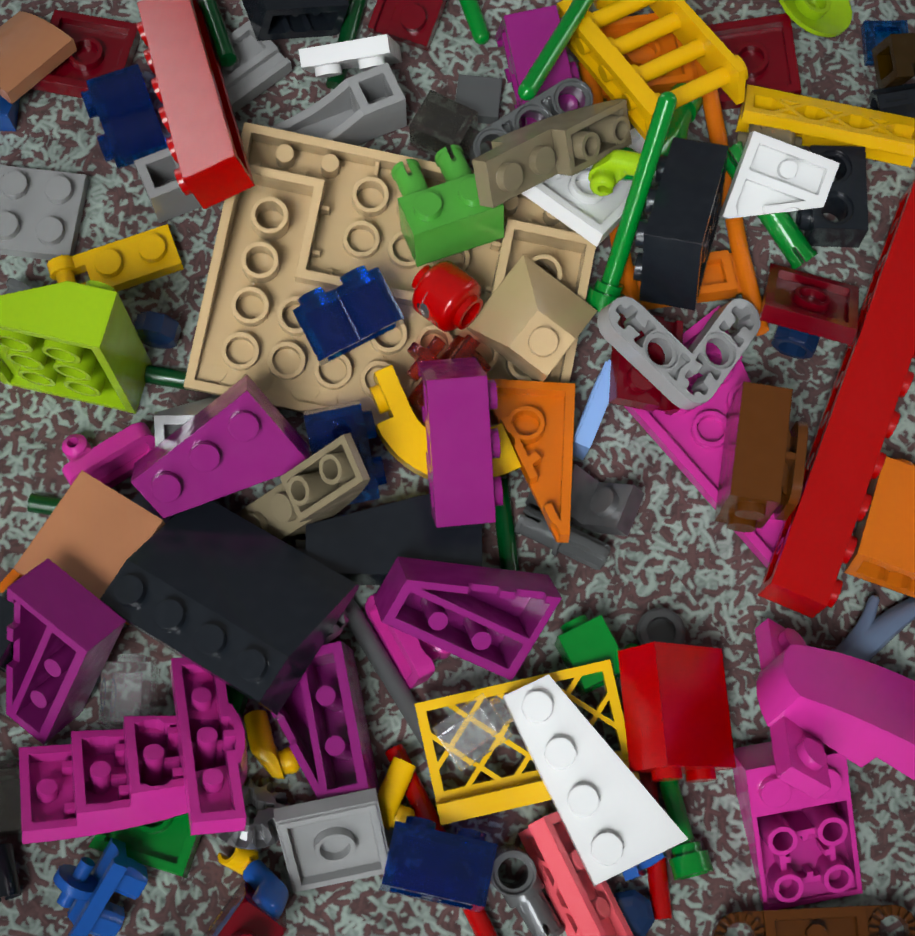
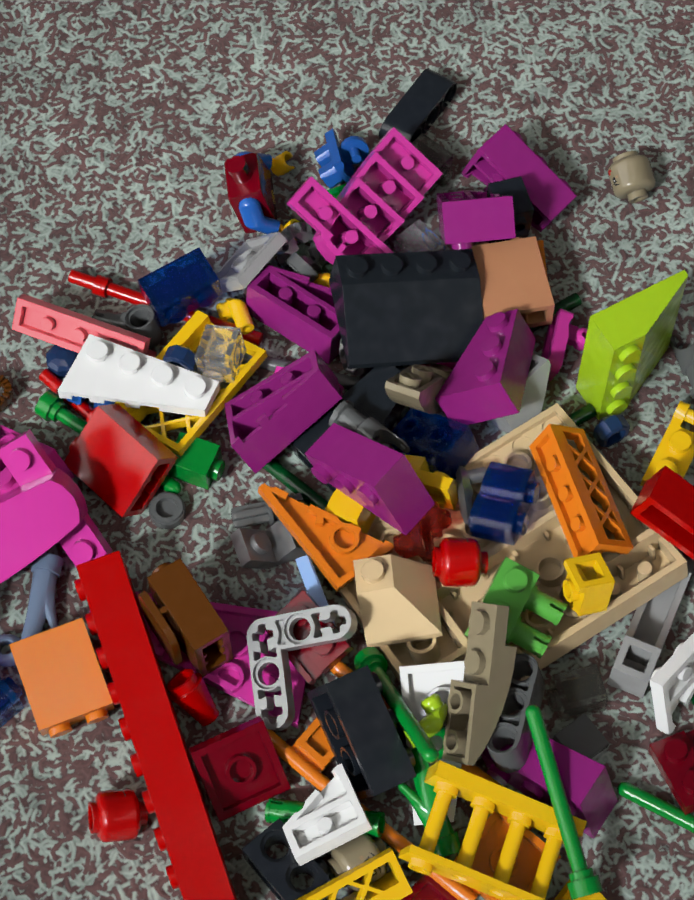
camera: 140 degrees right, 10 degrees down
(278, 259) = (572, 492): none -> orange fence
(281, 776) = (301, 267): none -> dark grey tile
(355, 384) = (464, 480): none -> flat silver bar
(369, 161) = (583, 589): none -> yellow brick
(409, 503) = (352, 419): none -> dark grey piece
(518, 762) = (181, 357): none -> dark blue tile
(805, 404) = (192, 695): none -> red cone

